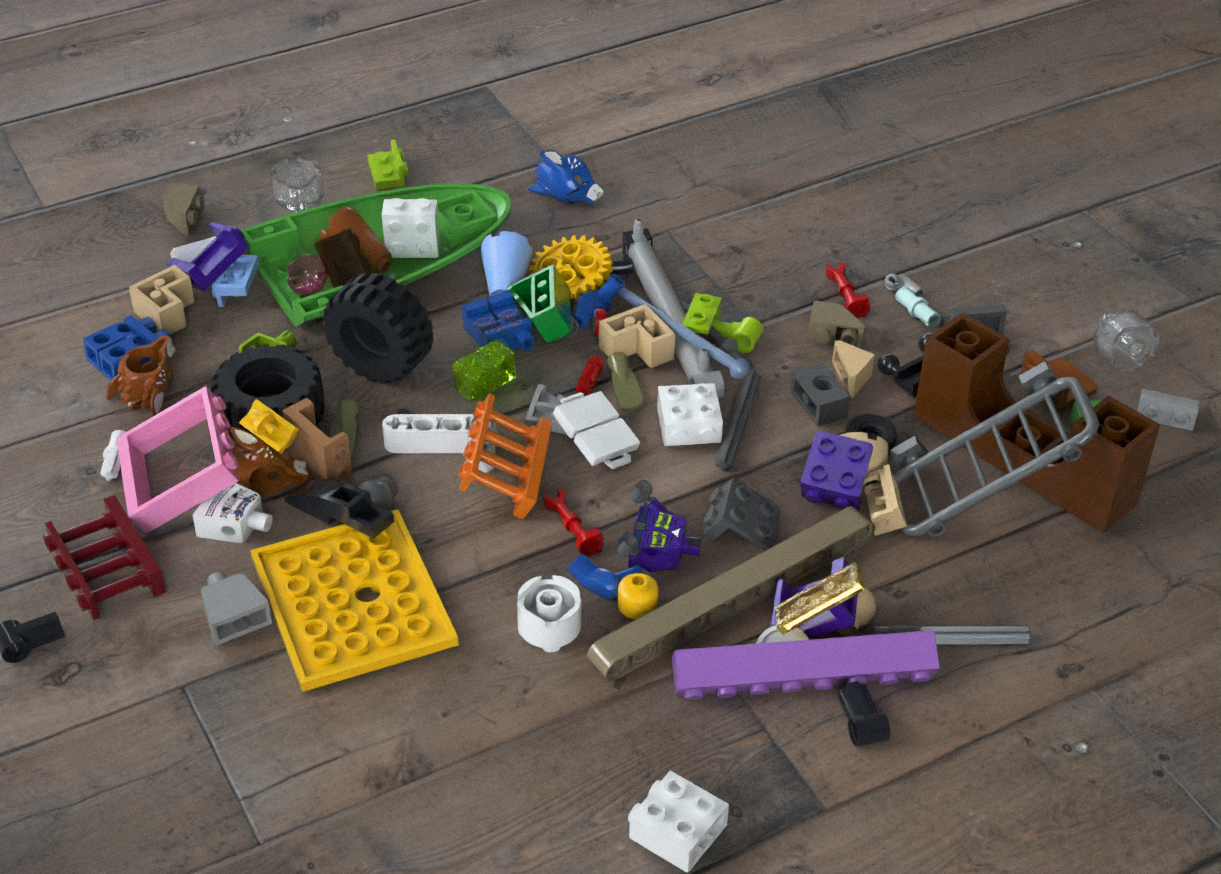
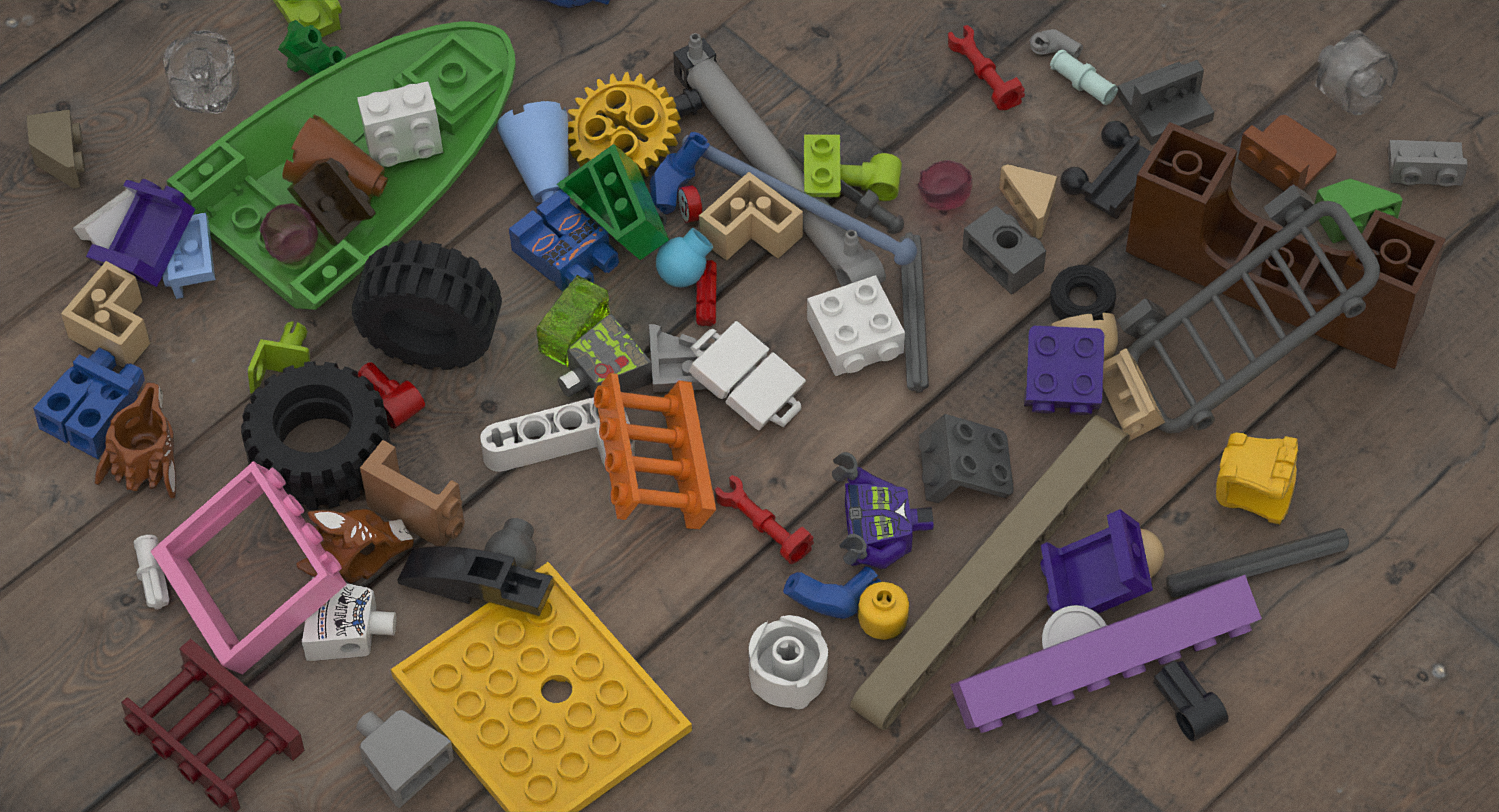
camera: 15 degrees left, 15 degrees up
(269, 426) = (353, 495): yellow hips -> none
(335, 388) = (399, 400): none -> red pin
(346, 422) = (426, 453): olive piece -> none
(370, 180) = (307, 51): none -> green hips
(507, 391) = (604, 351): none -> torso
(579, 349) = (683, 259): none -> medium azure piece
(624, 383) = (753, 292): olive piece -> none
(790, 348) = (945, 185): none -> clear pink hair
(819, 598) = (1107, 572): clear yellow tile -> none
(833, 323) = (989, 135): dark tan slope -> none
(968, 573) = (1258, 475): none -> yellow piece

